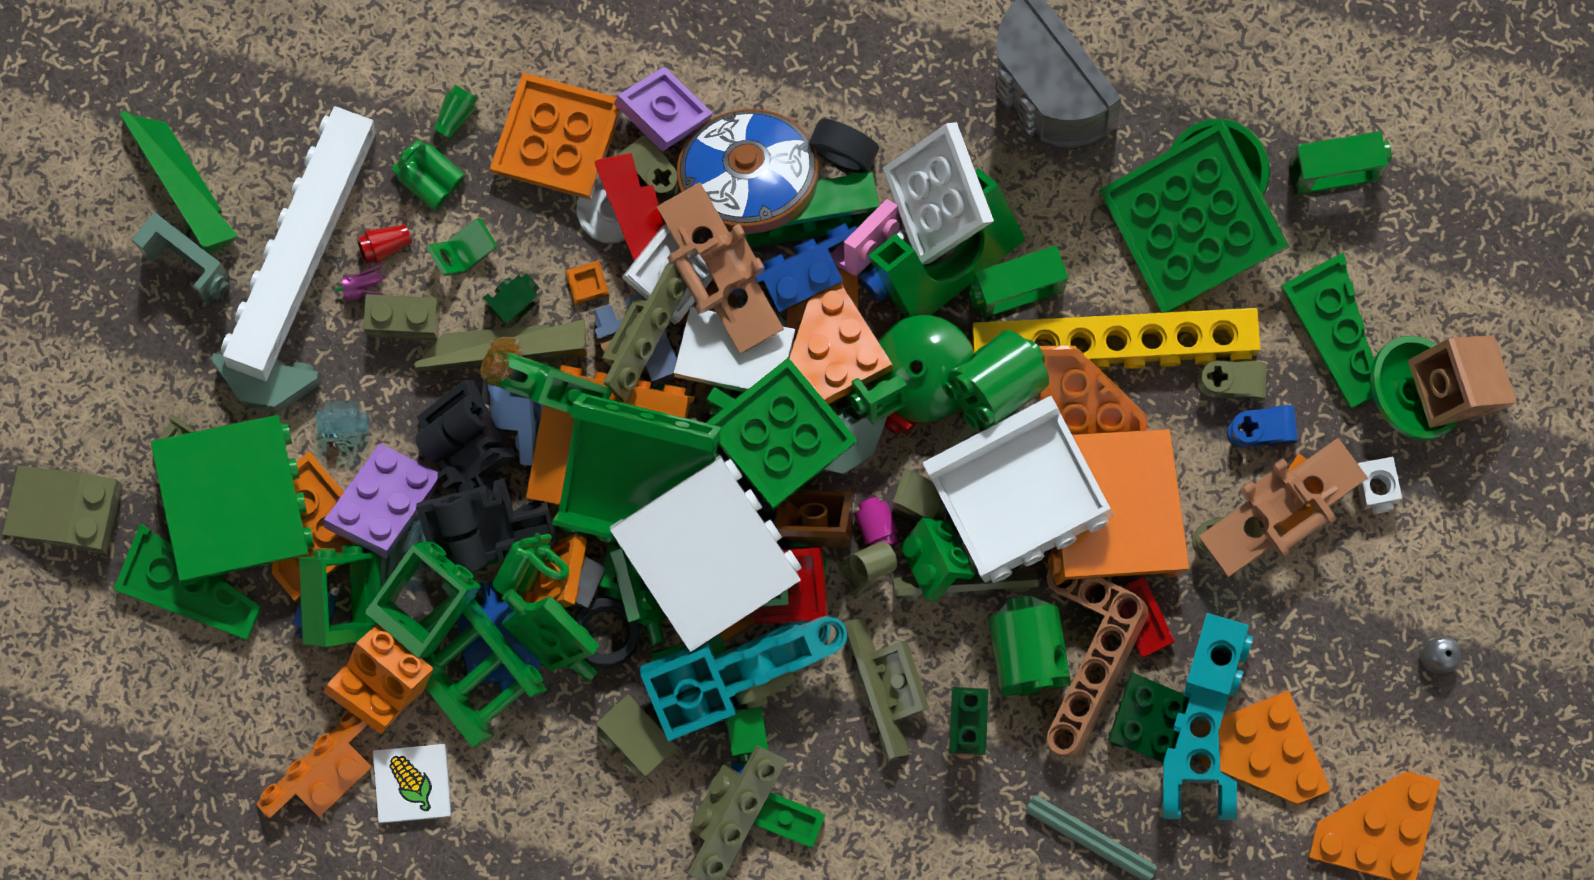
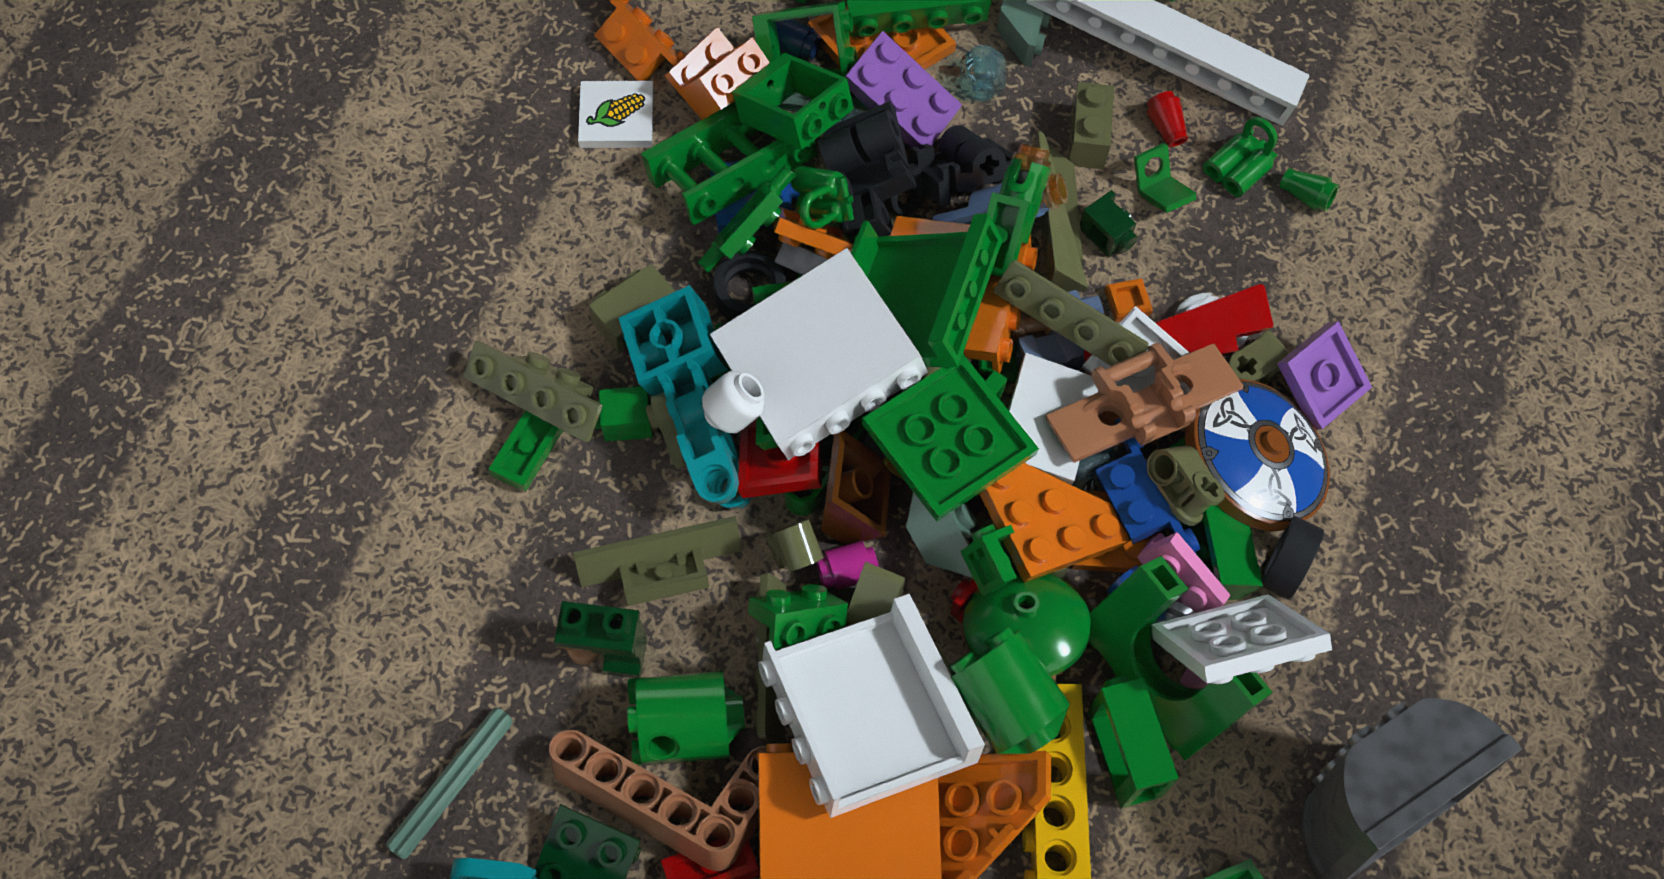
camera: 90 degrees right, 15 degrees down
(355, 284) = (1125, 96): flat silver piece -> none
(556, 136) = (1299, 270): orange plate -> none
(766, 620) = (733, 401): none -> white head
(790, 236) = (1184, 481): none -> olive piece

